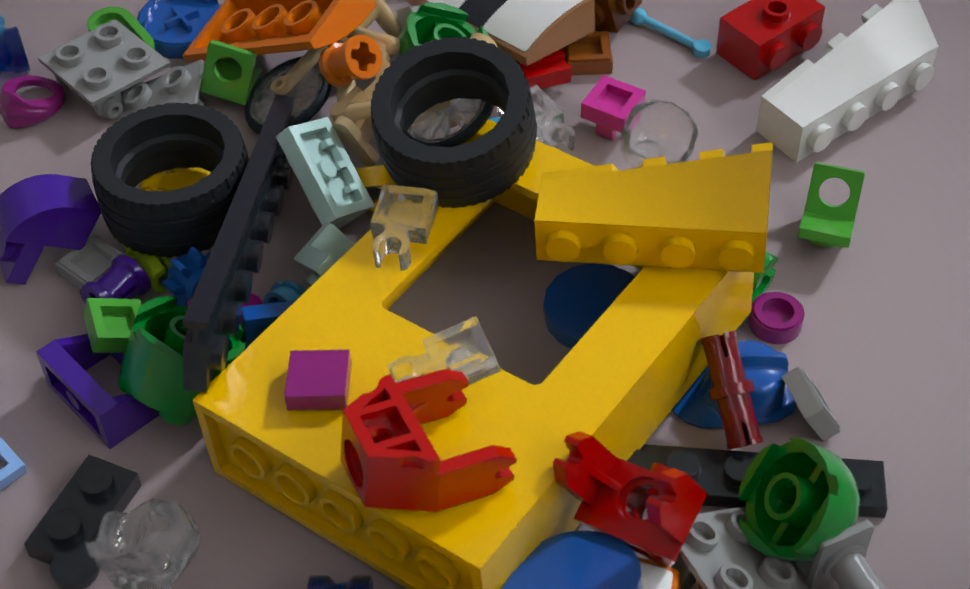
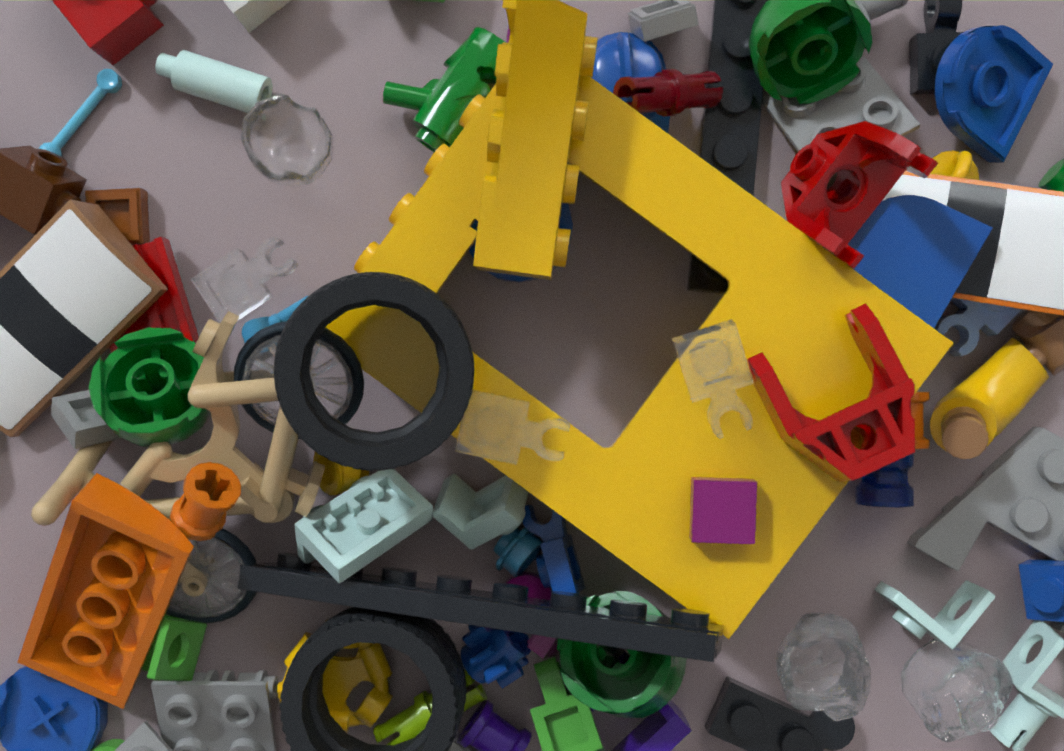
camera: 90 degrees left, 40 degrees up
(610, 105) = (229, 189): dark pink tile -> none
(709, 102) = (214, 80): none -> light aqua cylinder

